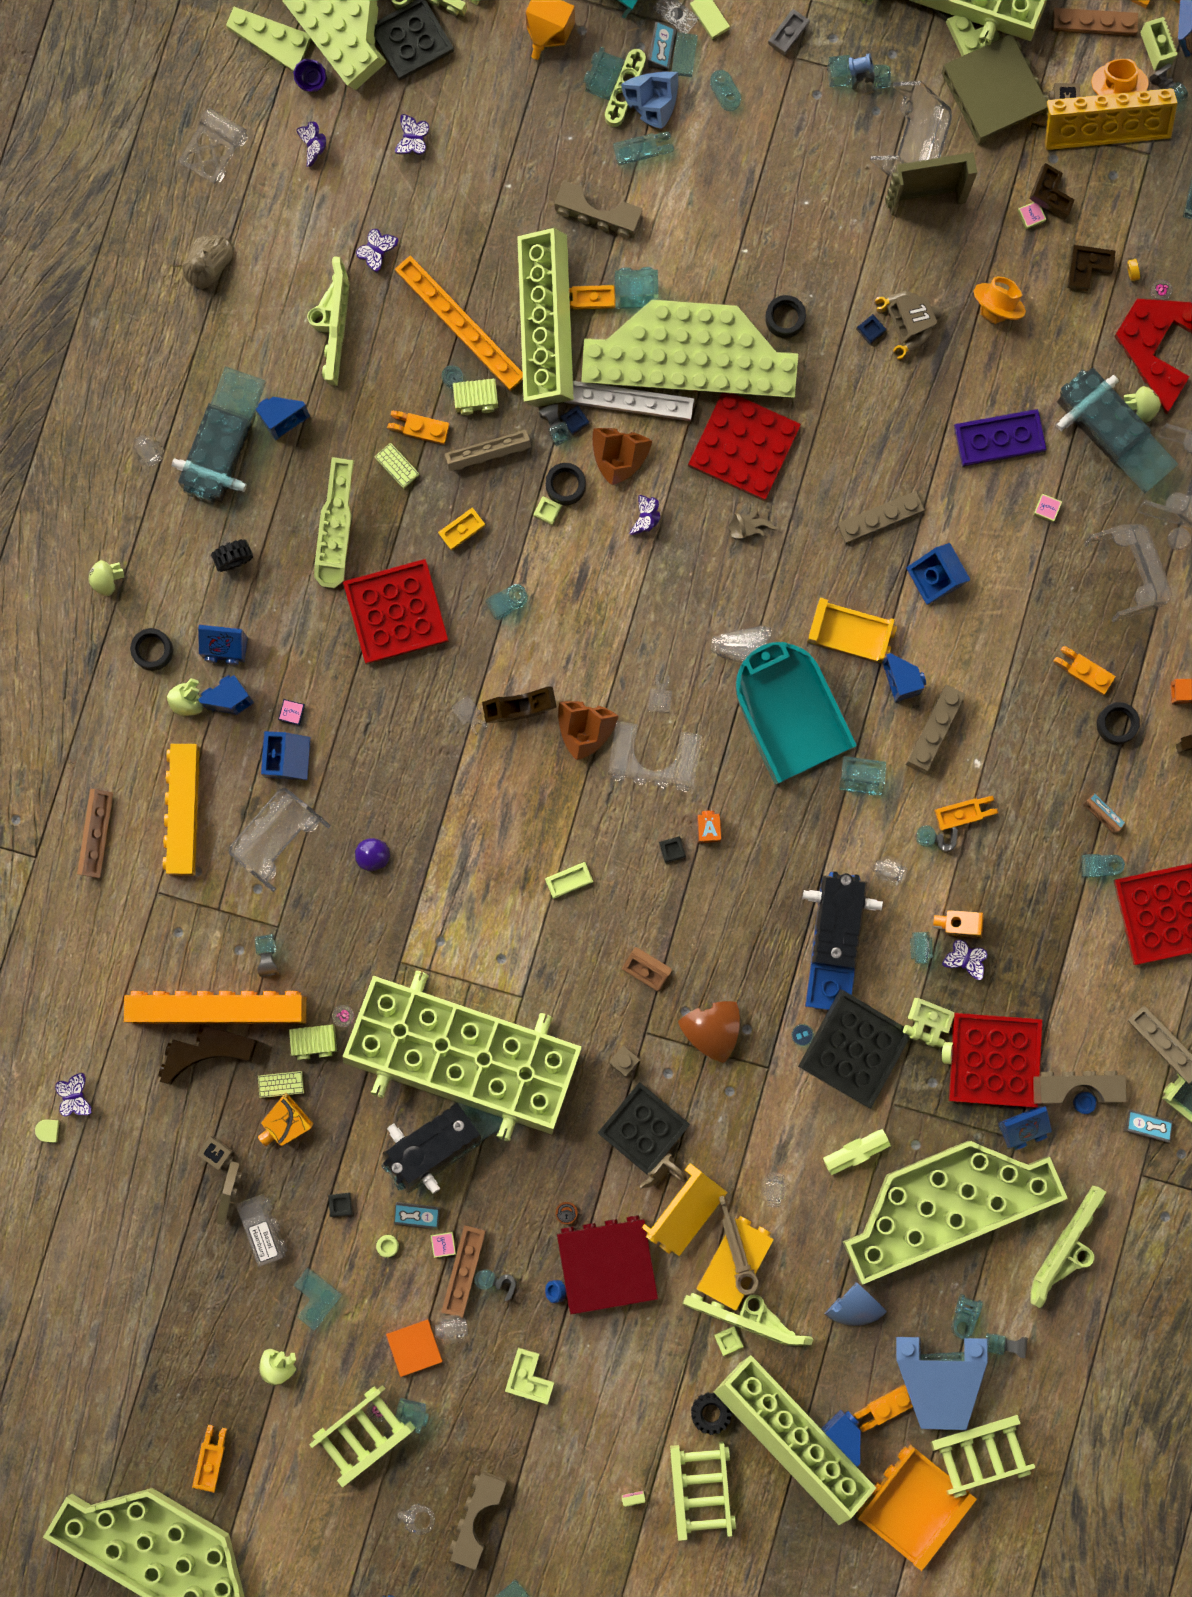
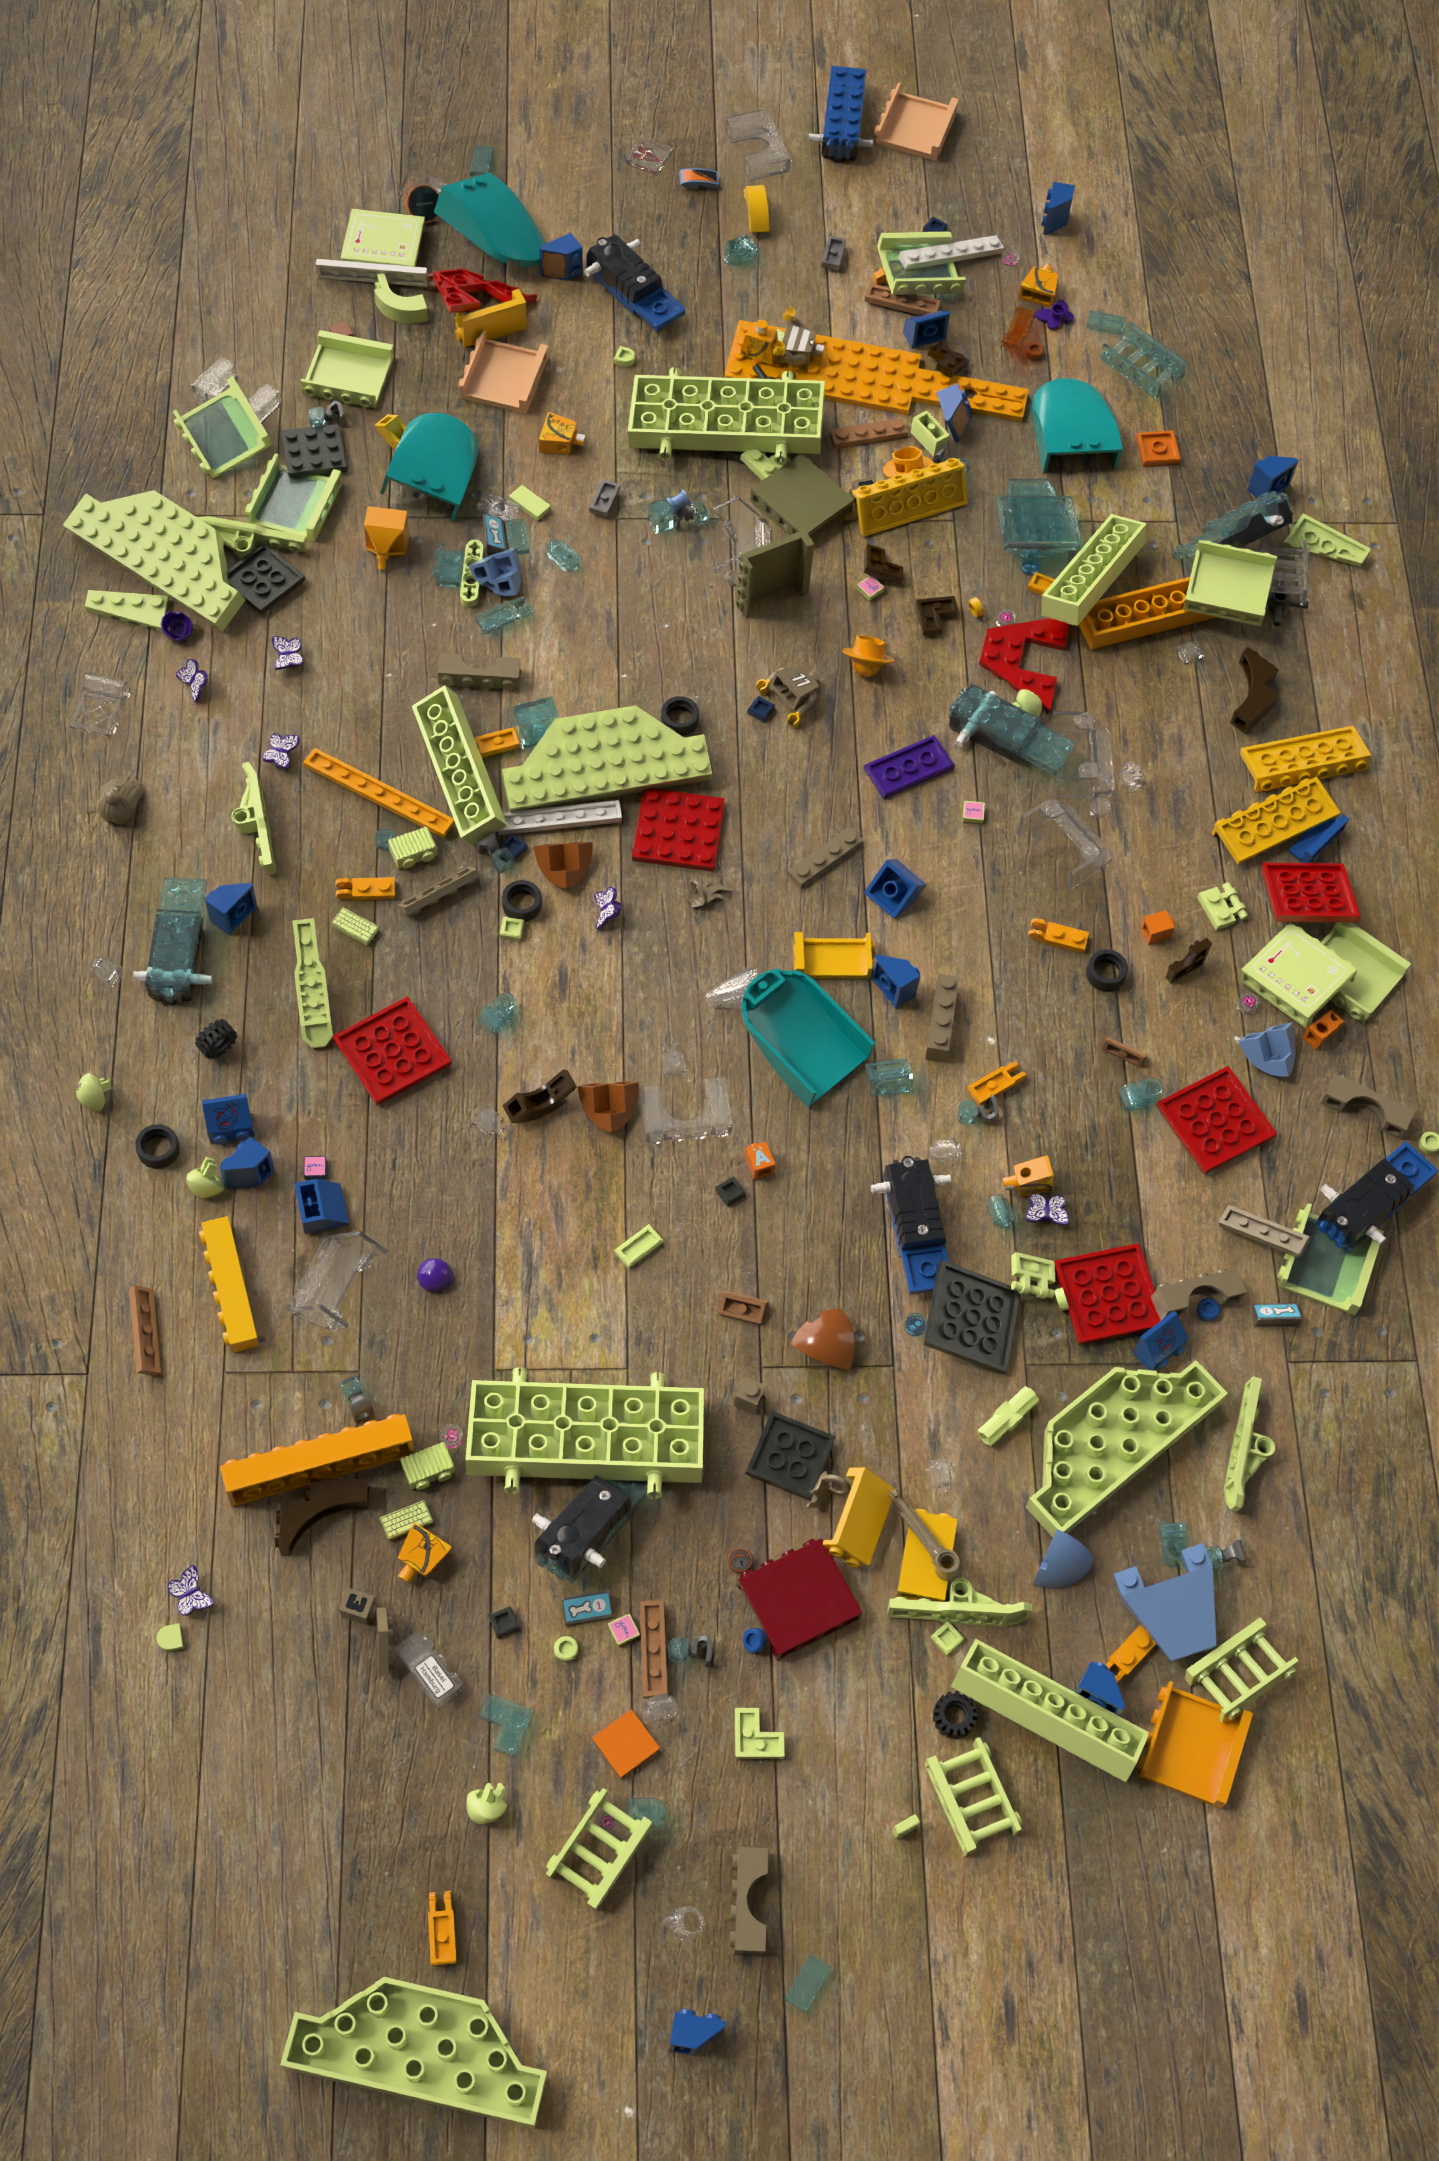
camera: 25 degrees left, 20 degrees down
(461, 529) = (434, 963): yellow plate -> none

